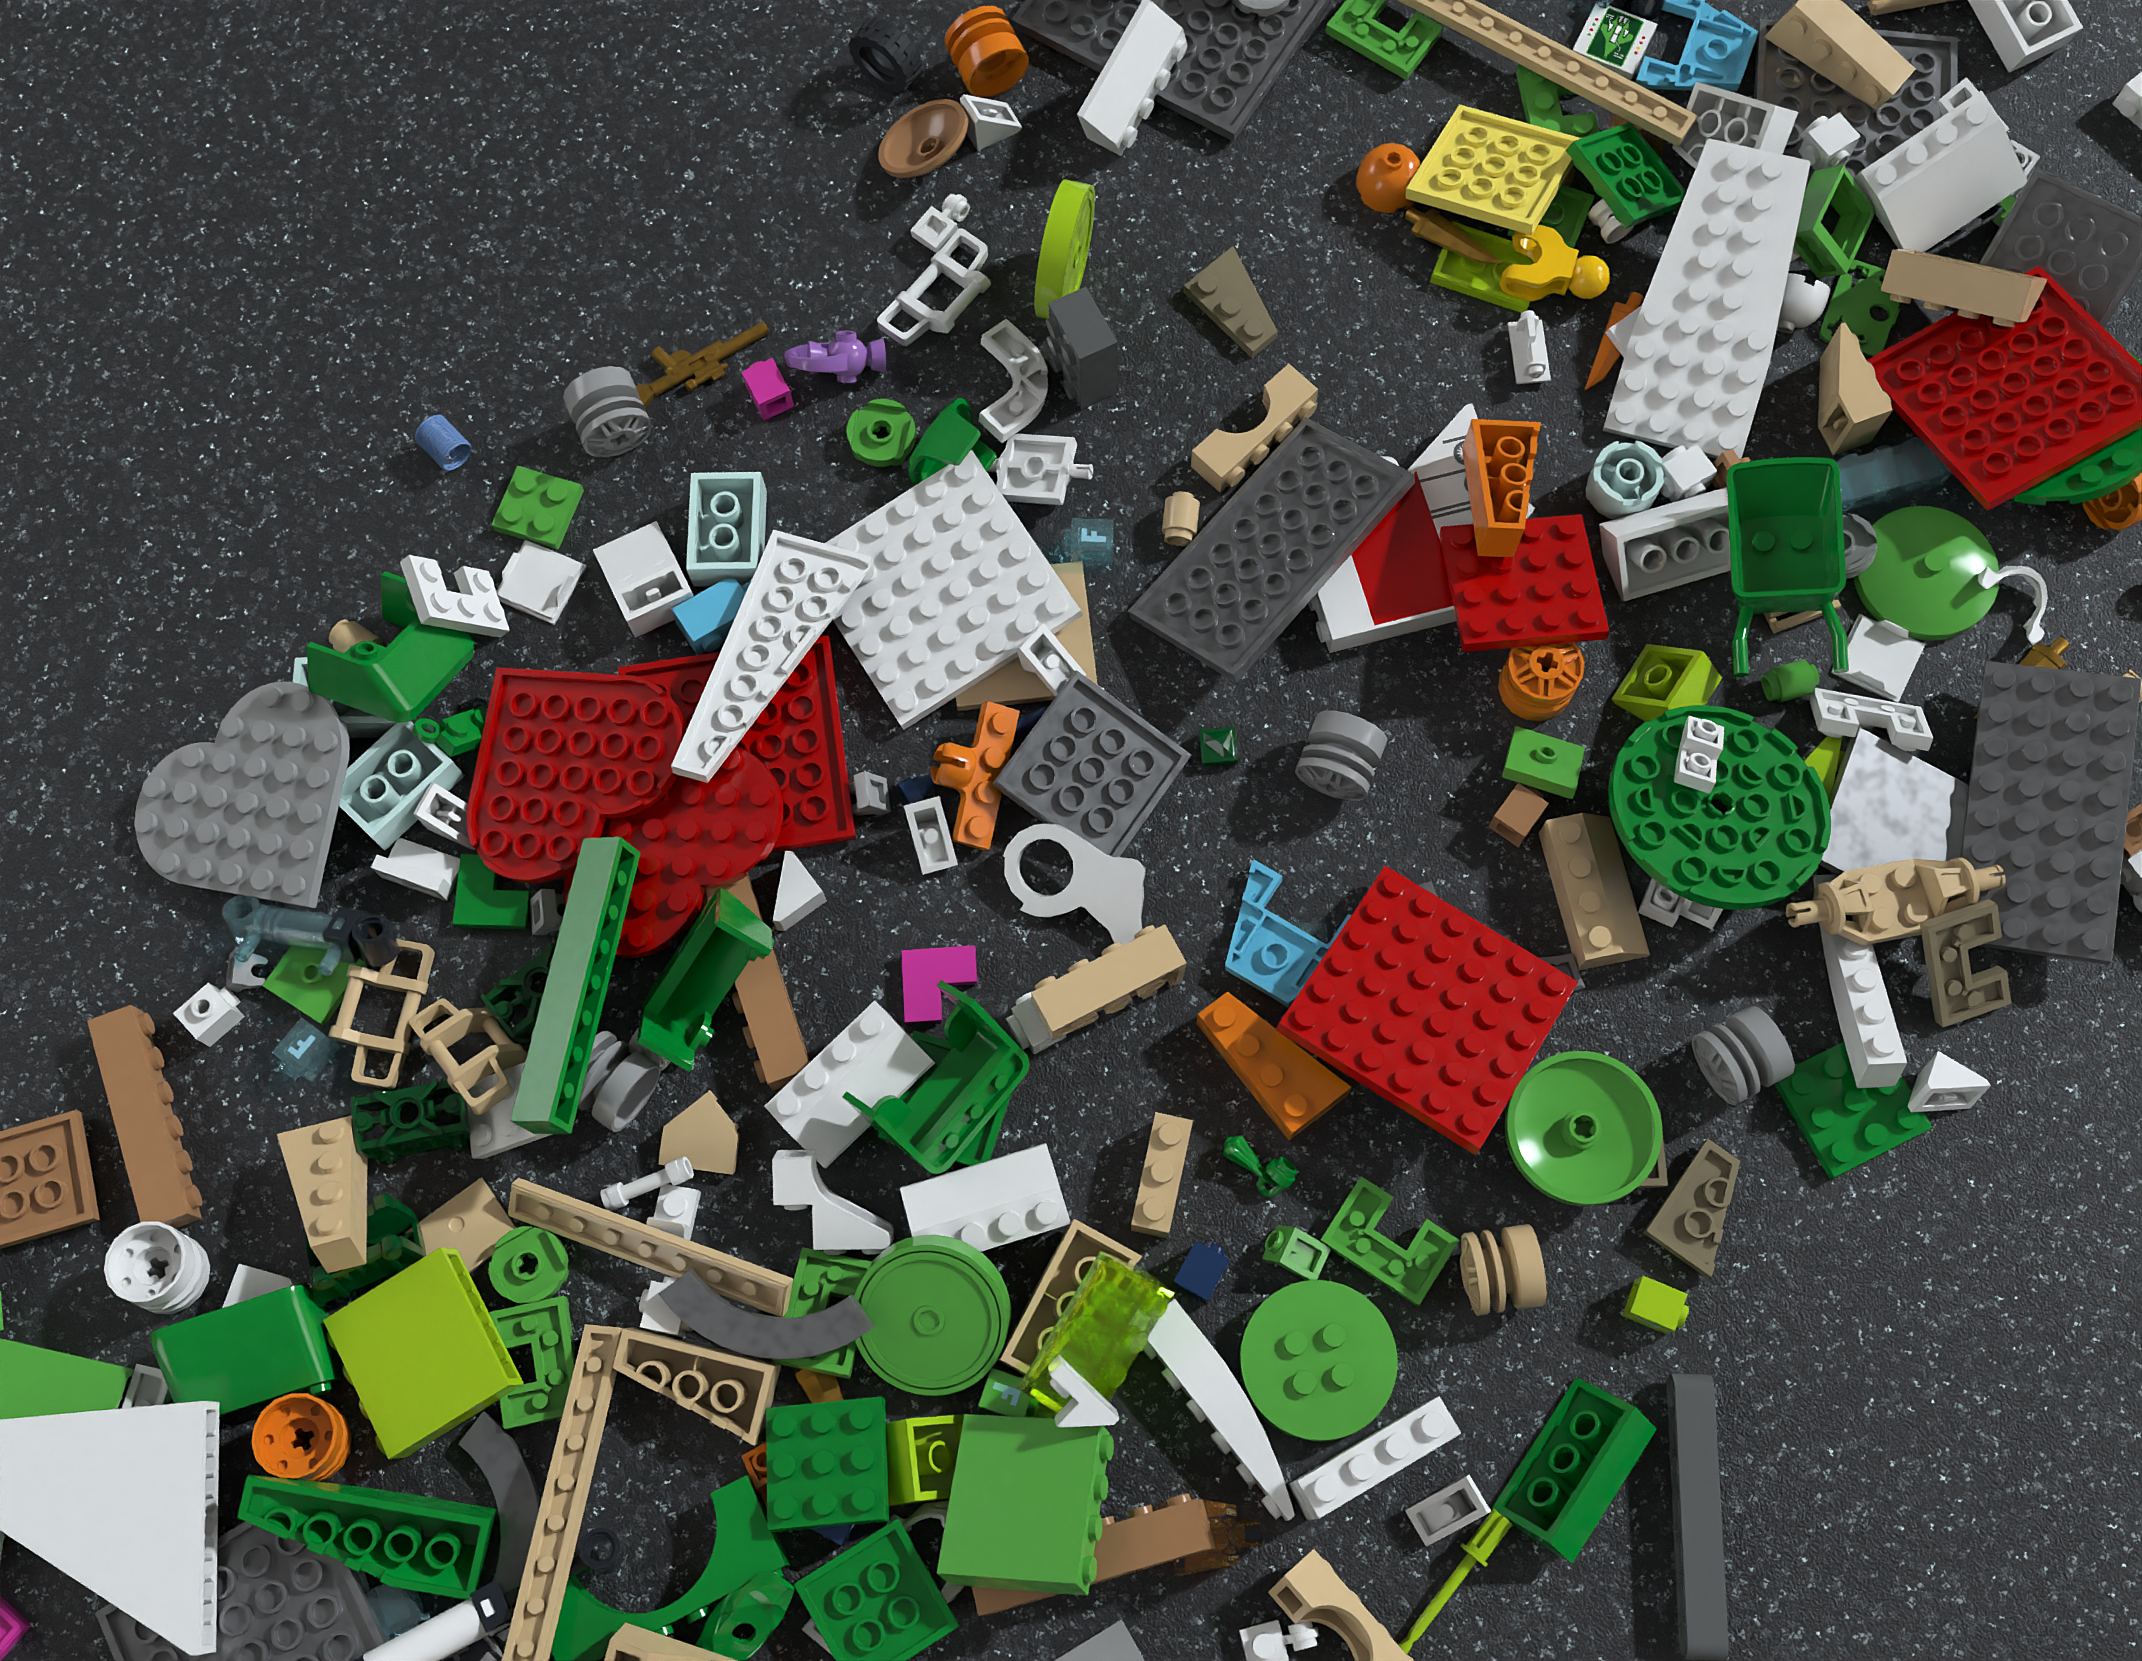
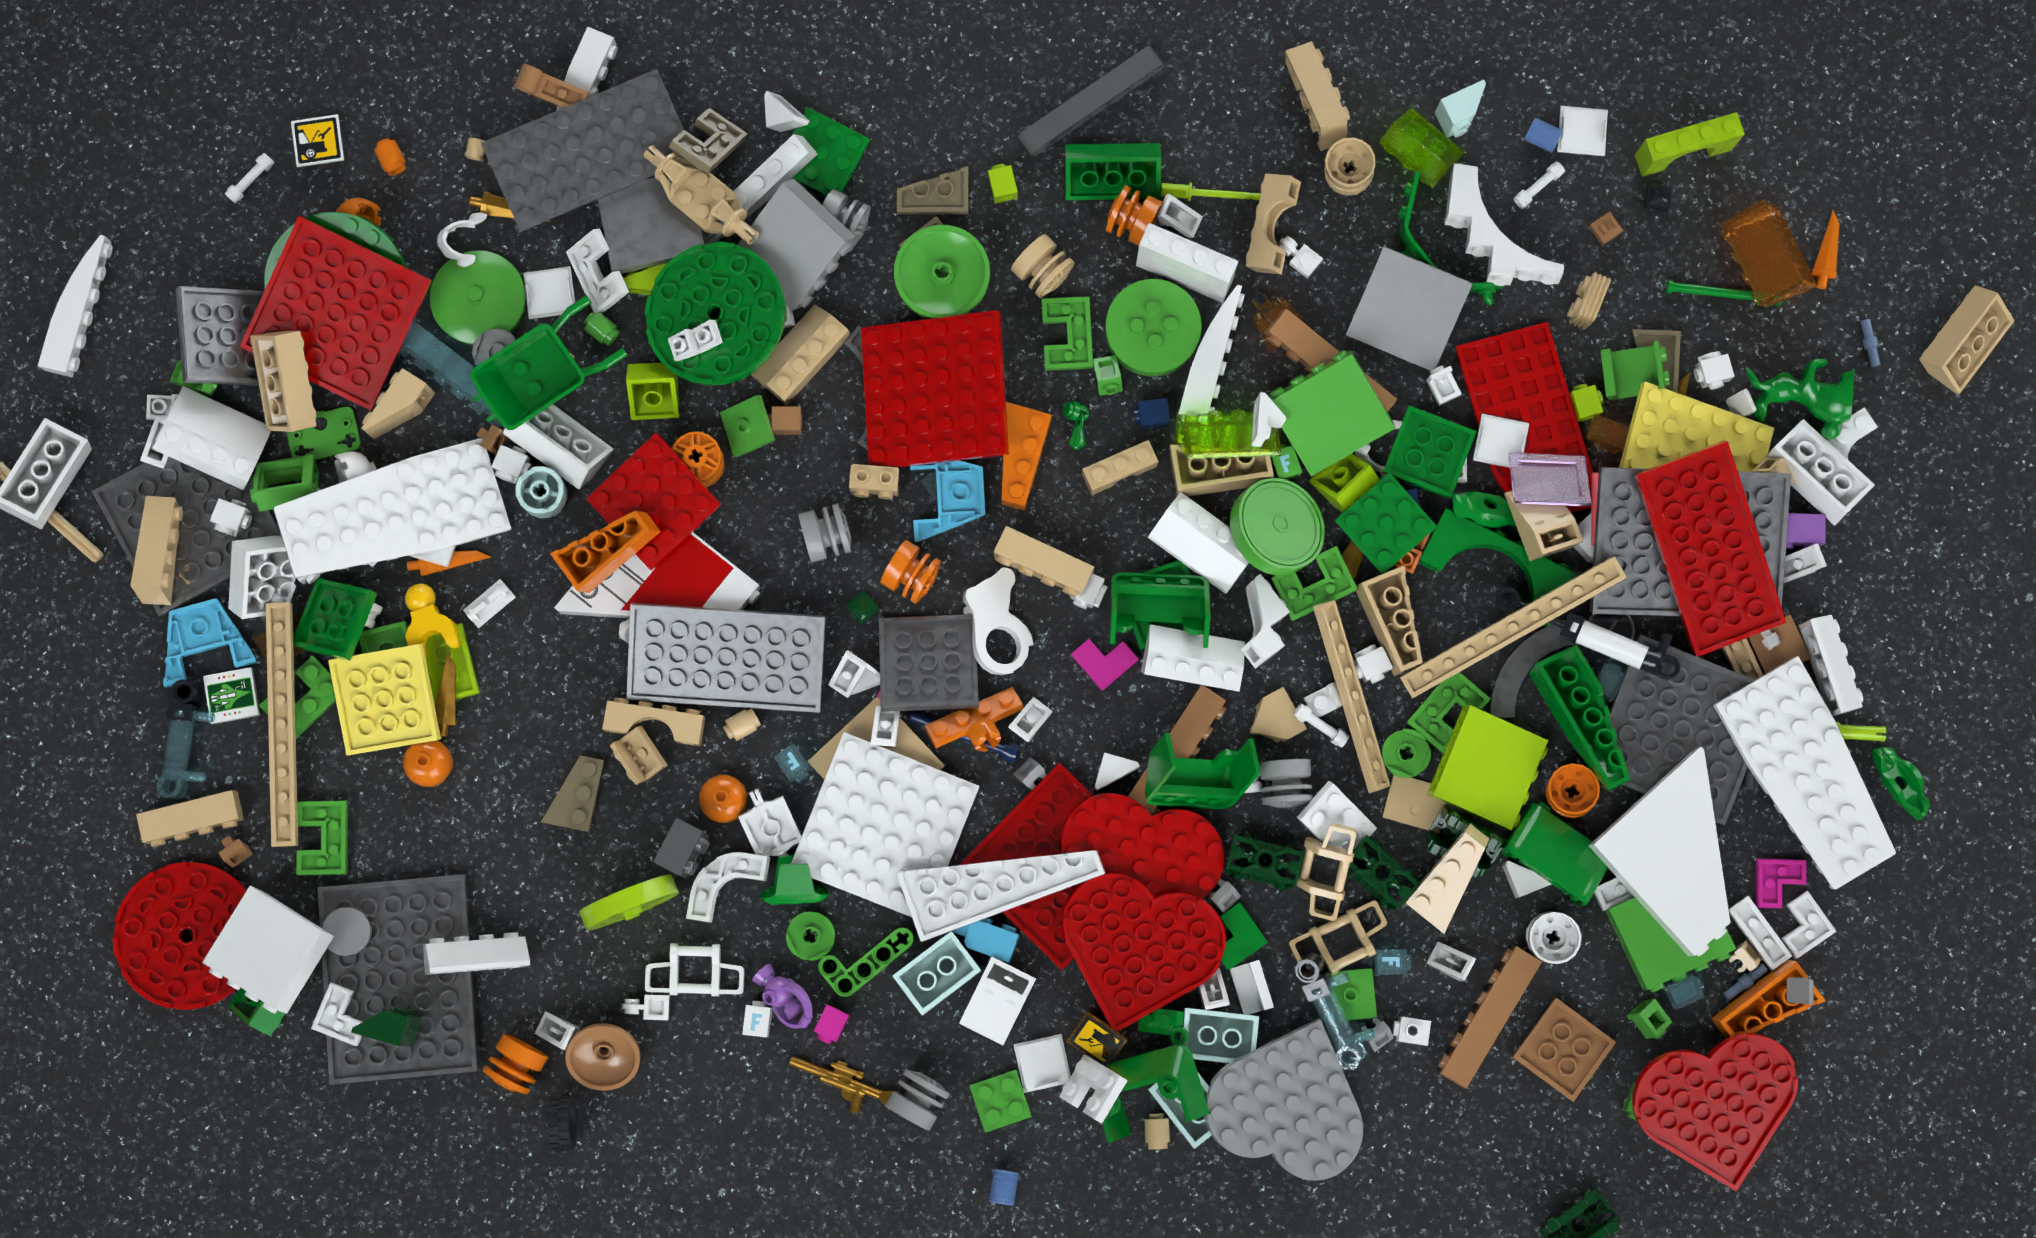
camera: 130 degrees left, 10 degrees up
(241, 1124) = (1451, 961): none -> white slope
(508, 649) = (1097, 1039): none -> piece
(576, 987) = (1253, 830): green brick -> none
(763, 1334) = (1350, 601): flat silver tile -> none
(802, 475) = (870, 958): none -> bright green beam
(833, 313) = (757, 1019): none -> white brick
(1111, 444) = (723, 798): none -> orange cylinder
(1145, 680) = (853, 676): none -> white slope
(1211, 823) = (911, 572): none -> orange wheel
(1229, 385) = (638, 755): none -> tan bracket
(1366, 861) = (874, 480): none -> tan bracket
(1494, 1442) = (1132, 215): none -> orange wheel
(1749, 970) = (799, 242): none -> light grey brick

